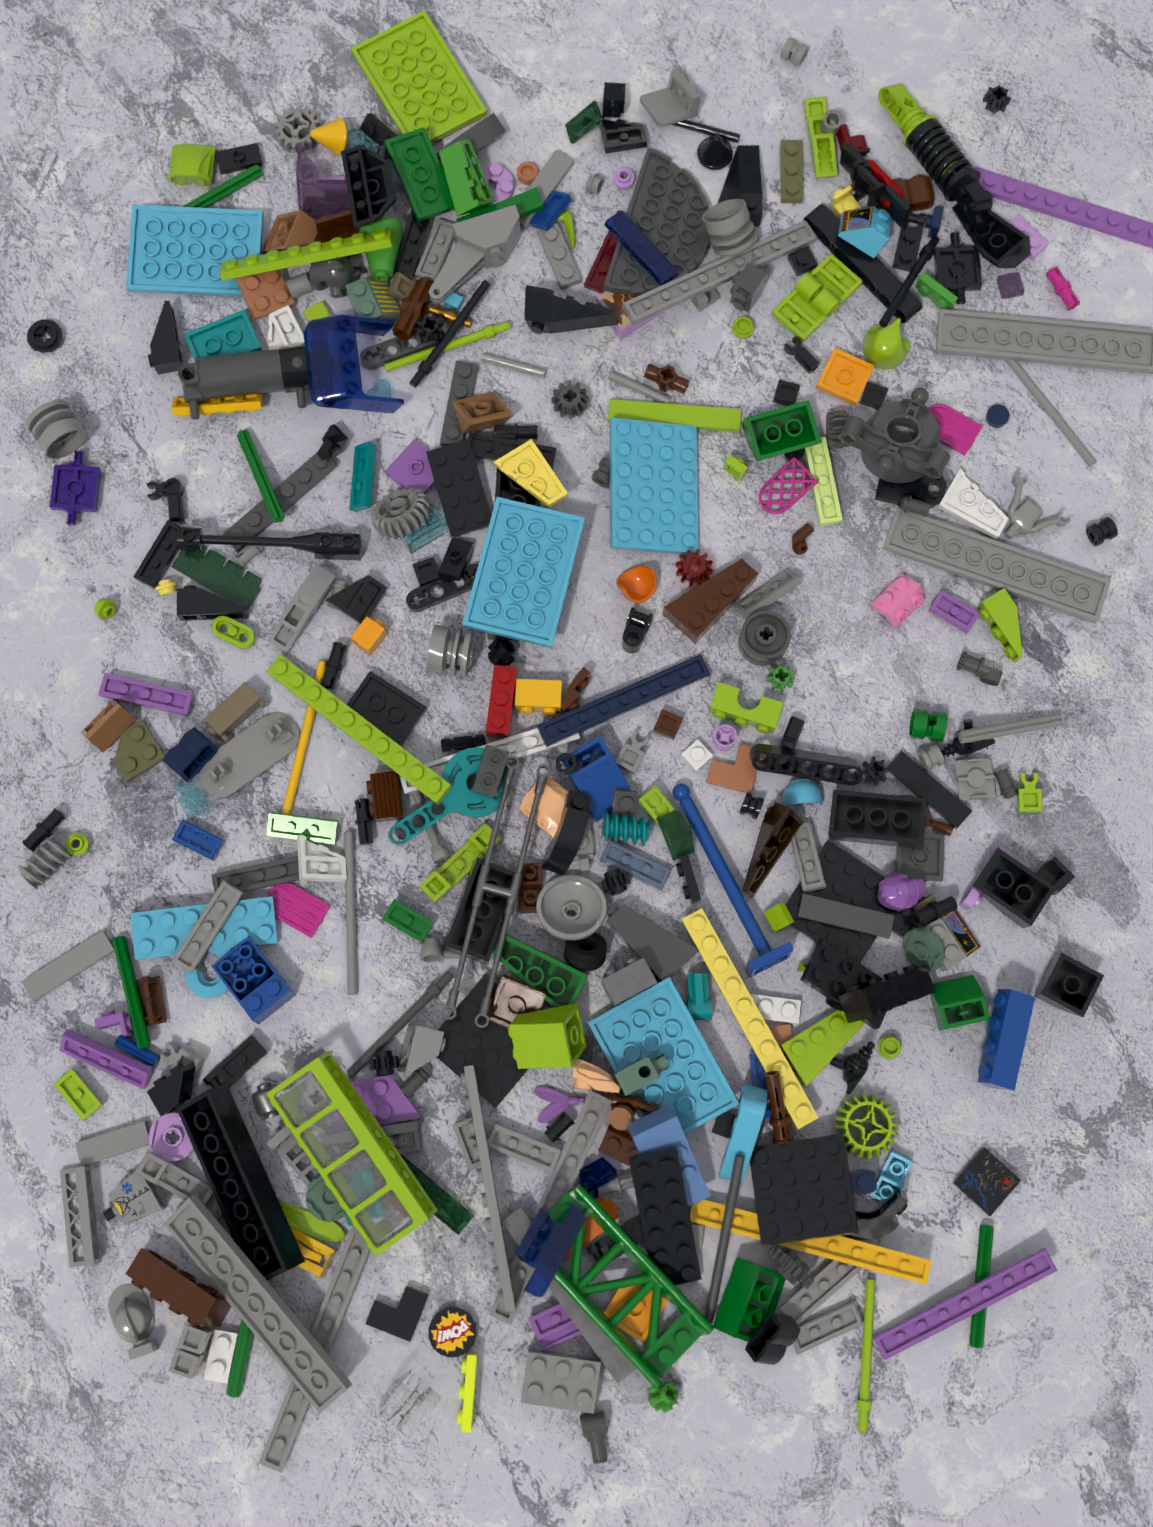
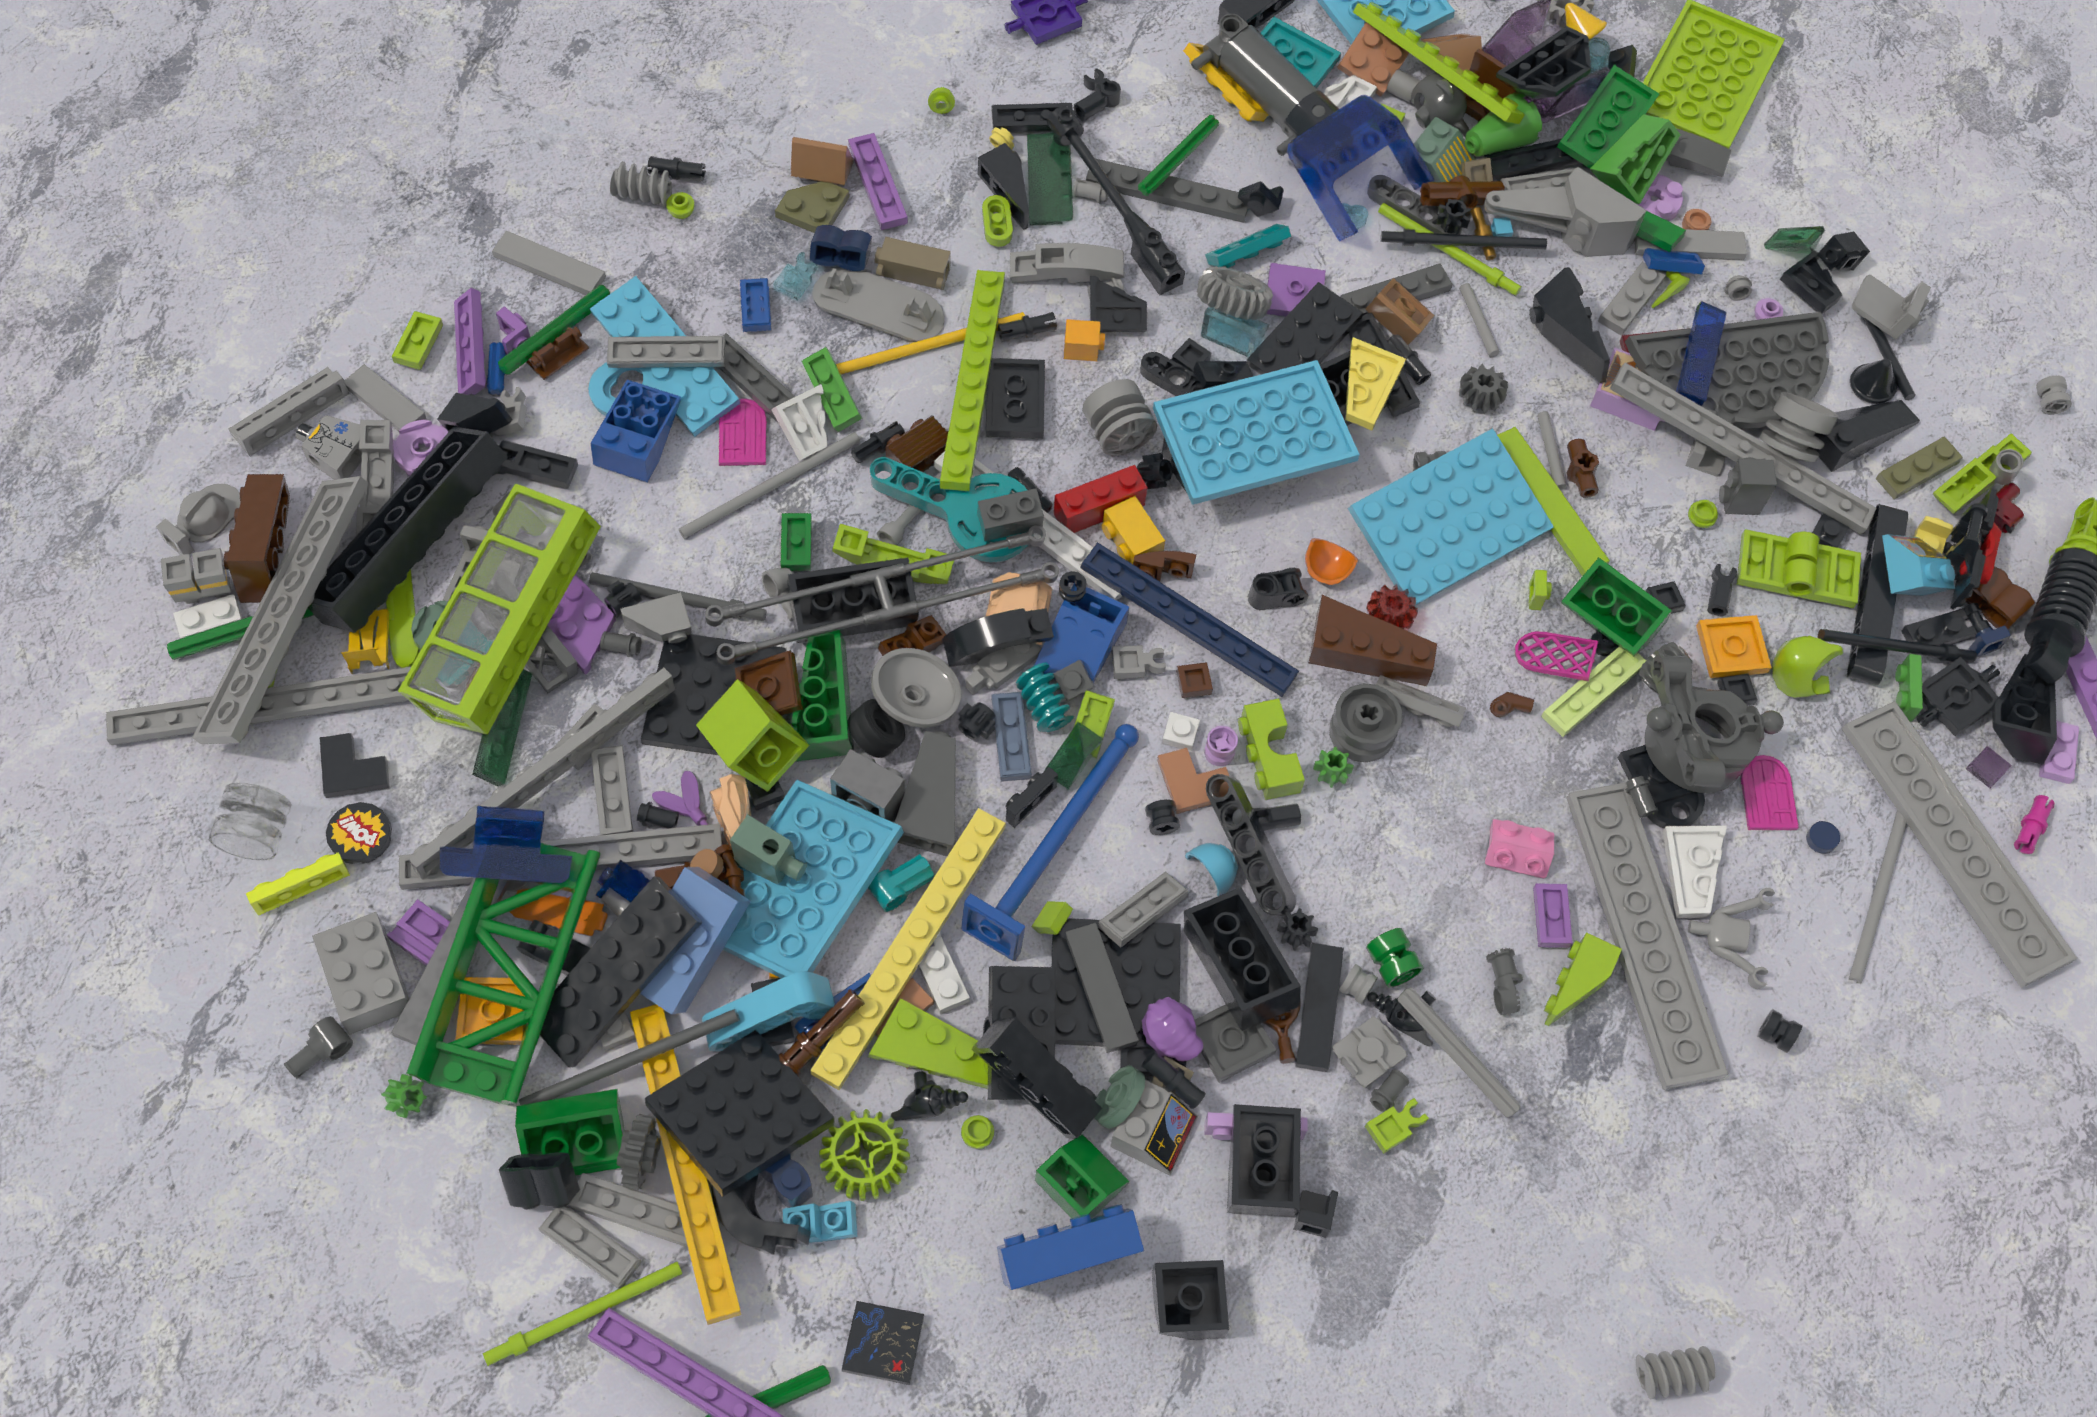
camera: 55 degrees right, 15 degrees down
(774, 837) = (1128, 860): dark brown wedge -> none

